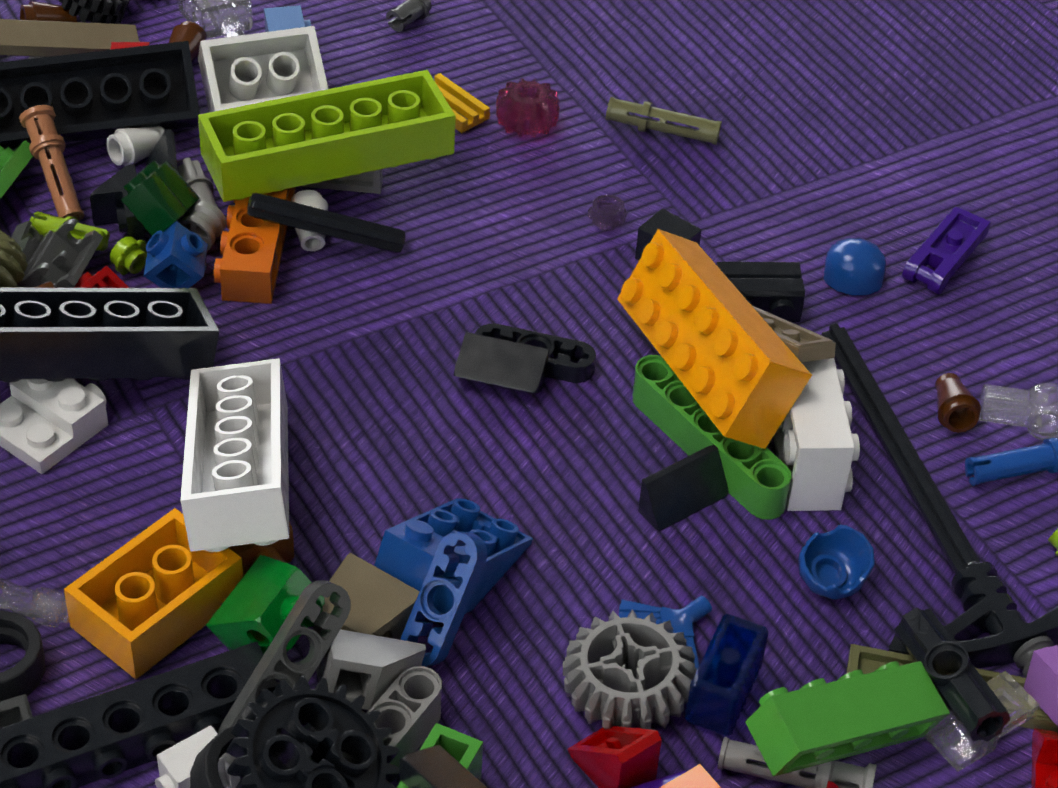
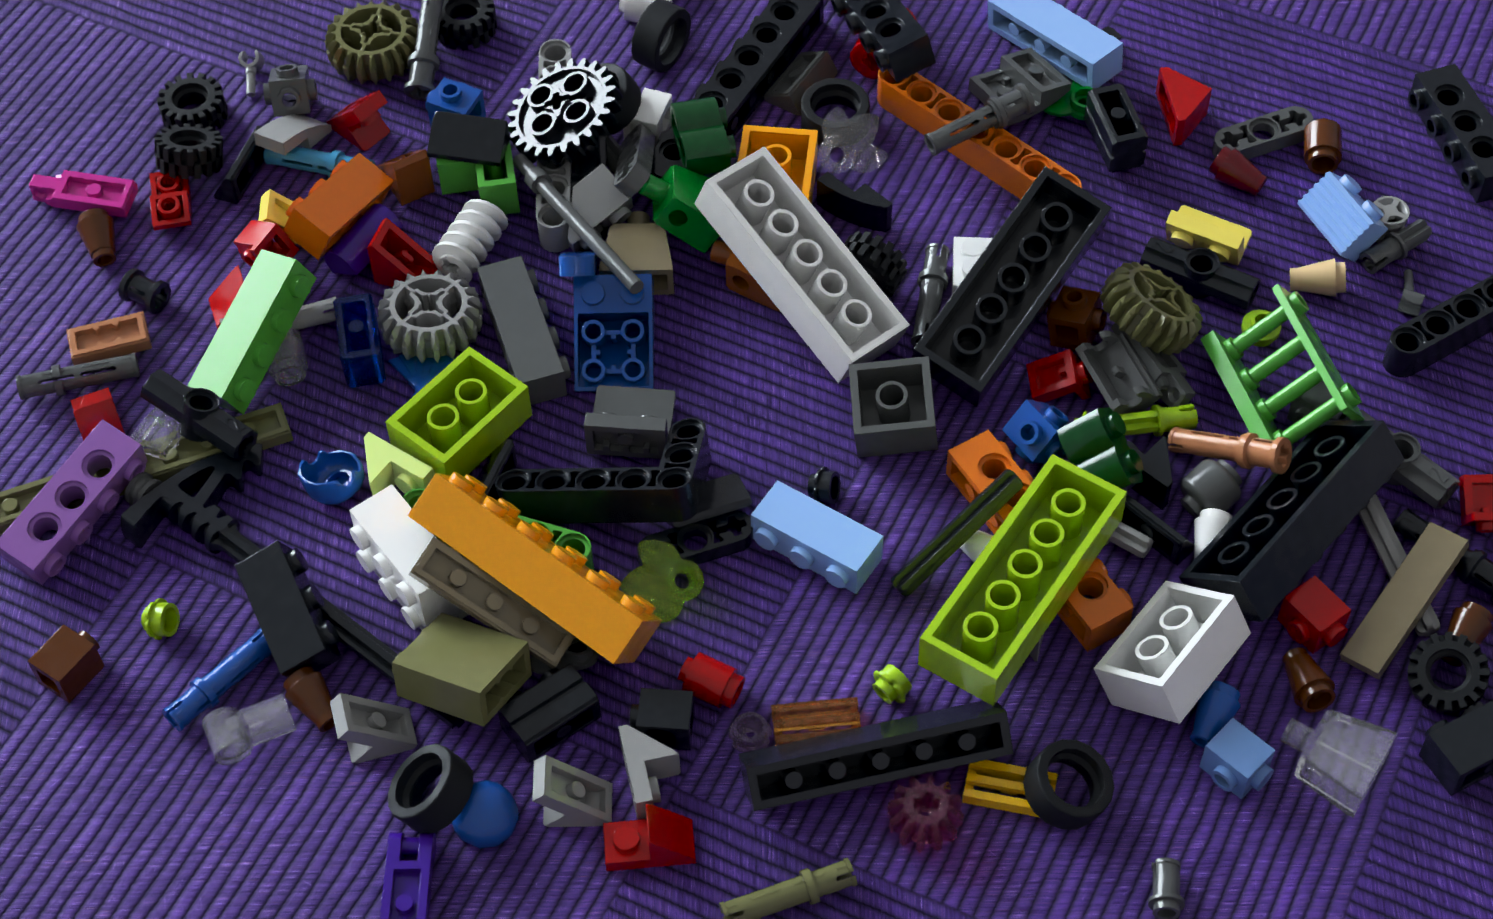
camera: 150 degrees right, 10 degrees up
(89, 530) = (858, 207): none -> black slope
(94, 163) = (1210, 486): none -> dark grey head
(110, 432) = (932, 283): none -> dark grey pin
(158, 451) = (878, 260): none -> black tyre
(190, 649) = (701, 135): none -> dark green brick
(275, 324) = (893, 407): none -> dark grey brick
(387, 330) = (824, 486): none -> black plate
(408, 710) = (541, 184): none -> dark grey bar
(418, 57) = (1088, 764): none -> black tyre
(434, 293) = (816, 537): none -> light blue brick
(473, 186) = (891, 684): none -> lime plate
(513, 462) = (629, 421): none -> dark grey bracket
(526, 729) = (469, 238): none -> white piece
(541, 609) = (522, 328): none -> dark grey brick
(549, 146) = (875, 754): none -> black brick
(550, 198) = (813, 716): none -> clear orange tile
(573, 392) = (617, 493): none -> black beam
(585, 331) = (657, 579): none -> clear neon green plate
(610, 250) = (711, 680): none -> red brick
(675, 538) = (461, 415): none -> lime brick
(713, 219) = (645, 763): none -> light grey slope
(734, 194) = (650, 842): none -> red slope
(768, 544) = (393, 466): none -> yellowish green slope
(782, 235) = (570, 795): none -> light grey slope
(829, 305) = (462, 669): none -> olive brick
(913, 263) = (444, 802): none -> black tyre
(917, 351) = (372, 727): none -> light grey slope
(947, 453) = (289, 609): none -> black brick

